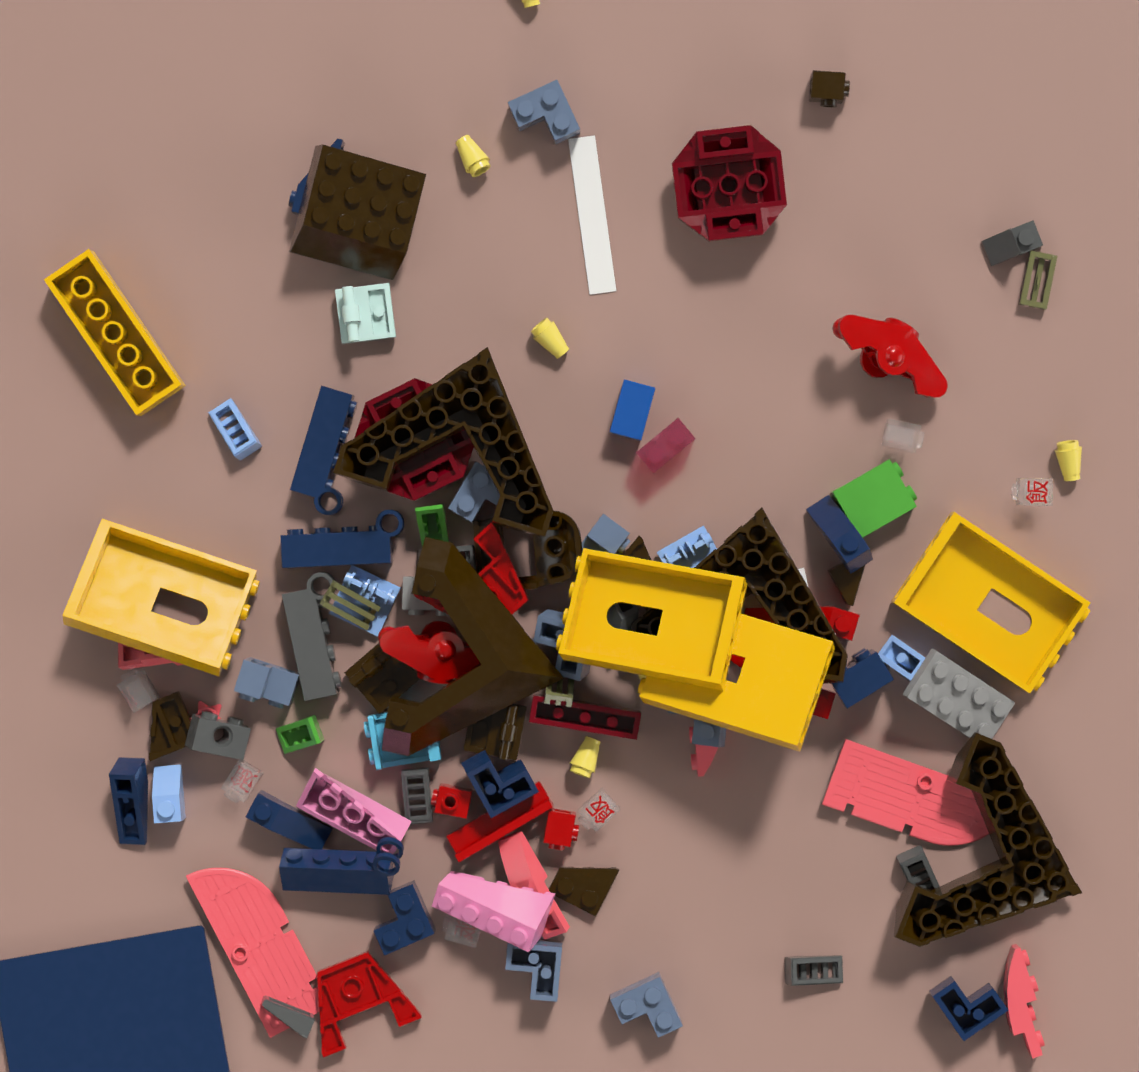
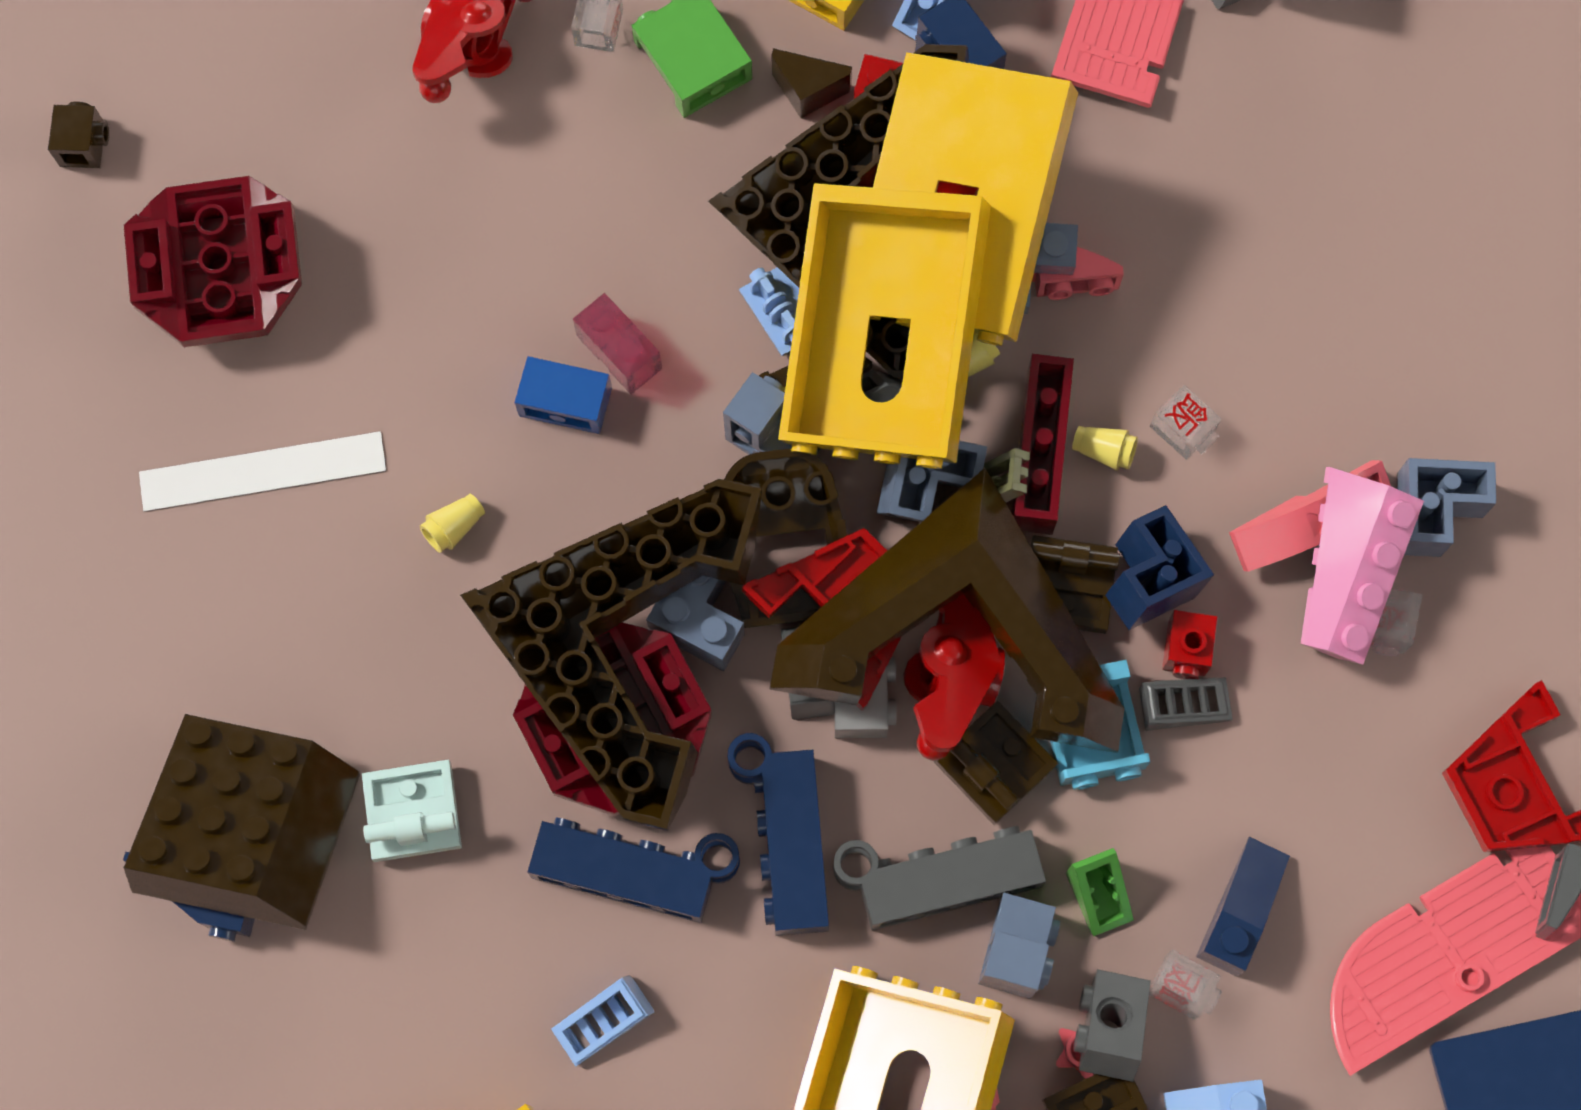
camera: 90 degrees left, 15 degrees down
(340, 869) = (1318, 810): dark blue hinge -> none
(351, 812) = (1223, 797): bright pink wedge -> none
(369, 616) = (899, 787): olive tile -> none
(372, 588) = (876, 797): light blue hinge -> none
(411, 923) = (1396, 704): dark blue brick -> none
(432, 522) = (747, 692): bright green slope -> none
(472, 156) = (163, 650): light yellow cone -> none
(486, 830) = (1234, 590): red fence -> none
(546, 104) = (88, 533): sand blue brick -> none
(560, 829) = (1220, 478): red brick -> none
(583, 886) = (1305, 443): dark brown wing -> none
(647, 997) = (1472, 338): sand blue brick -> none
(791, 970) = (1400, 138): dark grey slope -> none
(840, 534) = (744, 86): dark blue slope -> none

